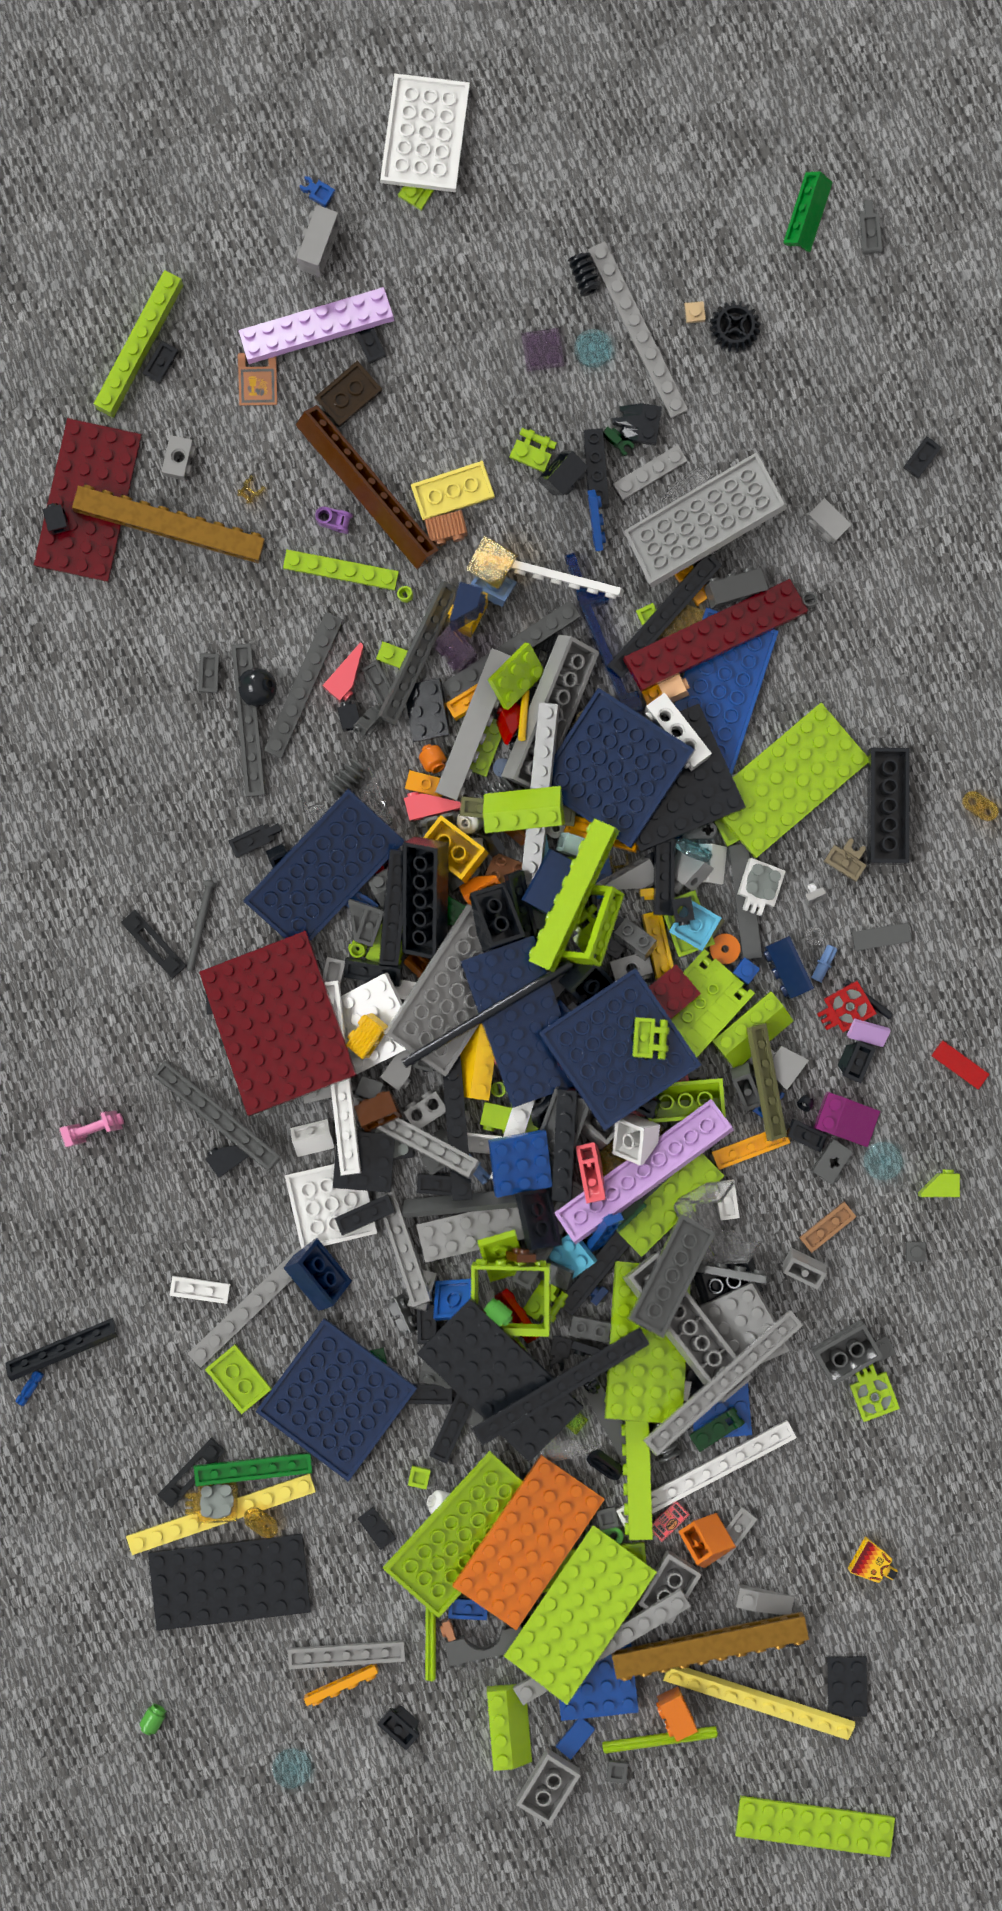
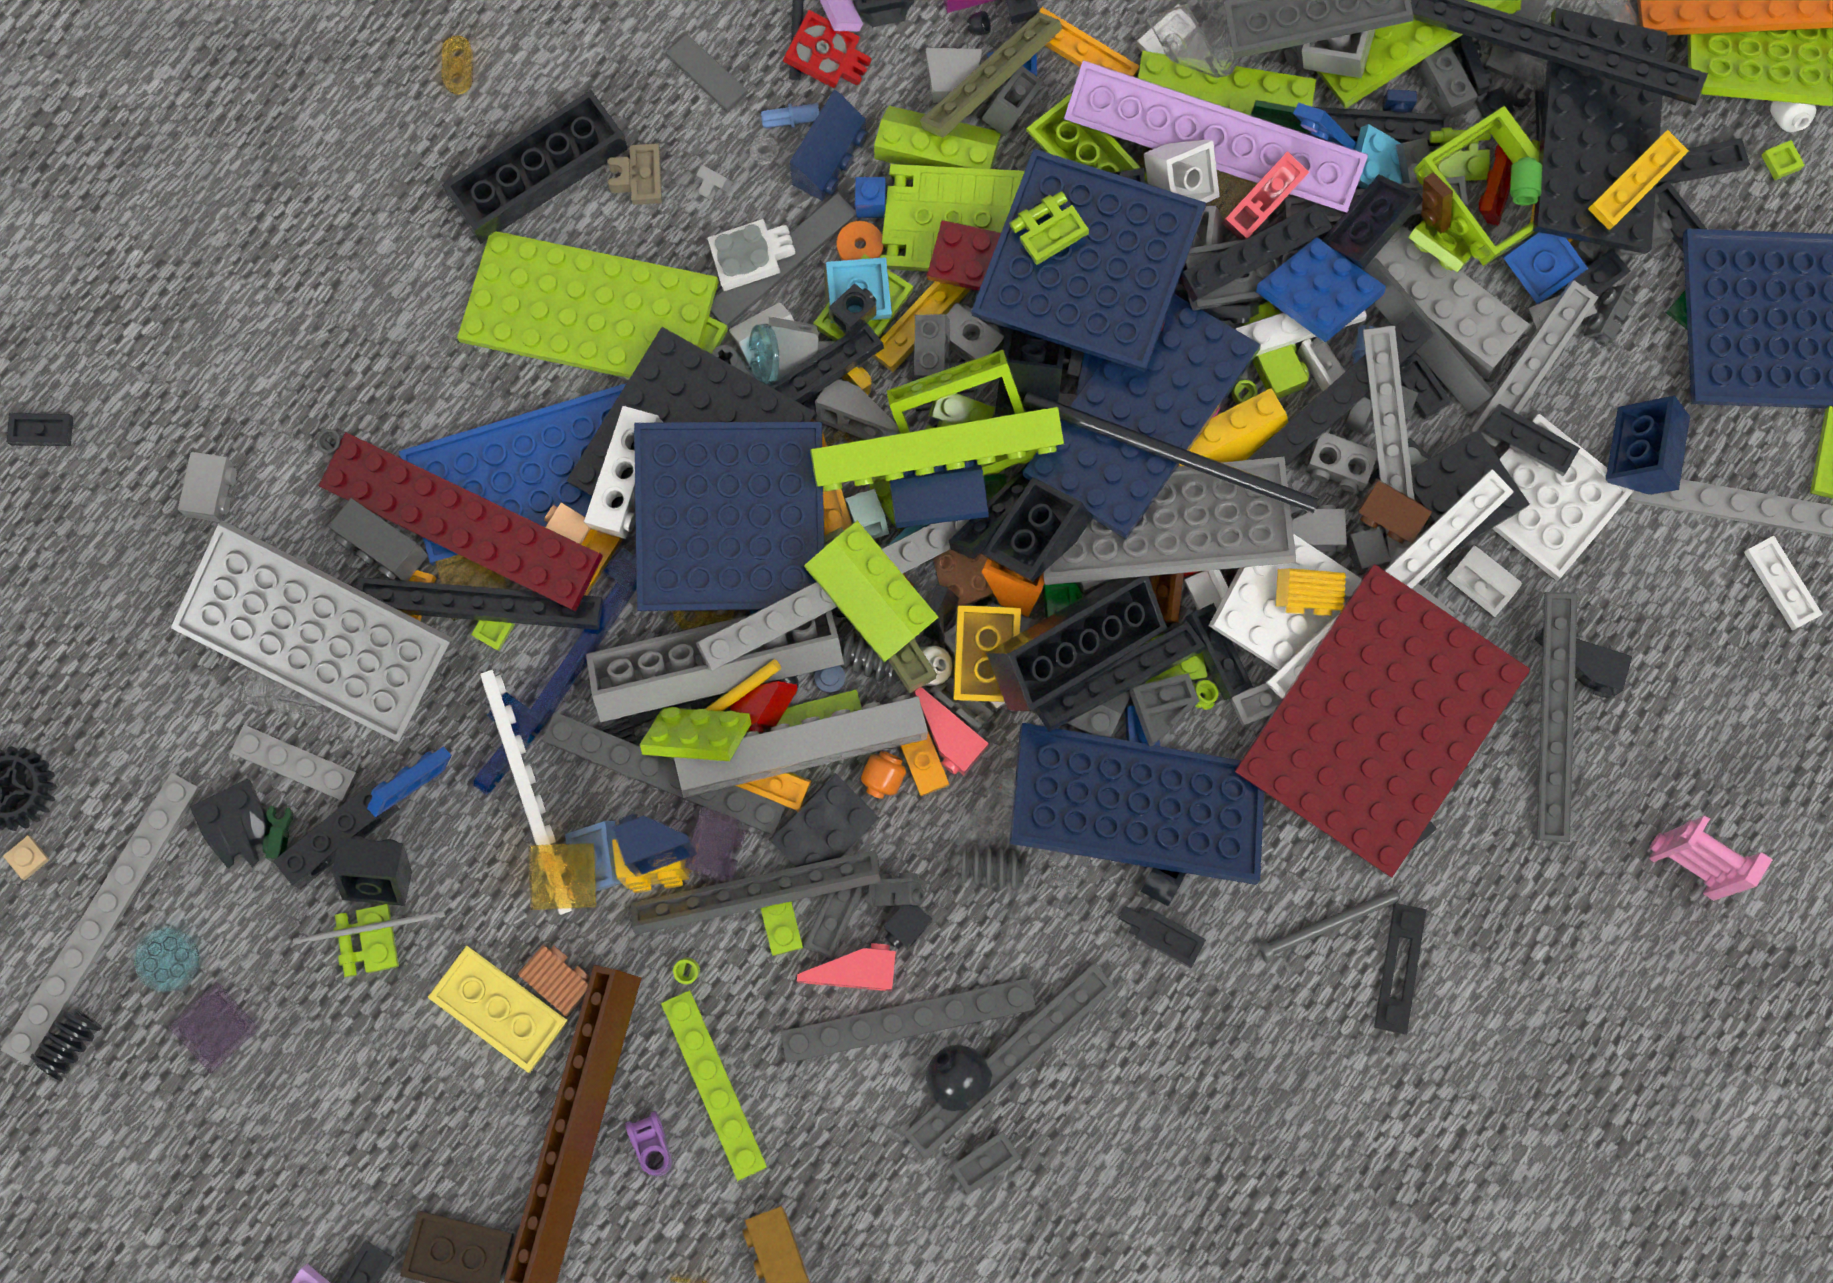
camera: 125 degrees left, 10 degrees down
(456, 1372) = (1638, 180): none -> yellow plate
(537, 455) = (369, 927): none -> light grey piece

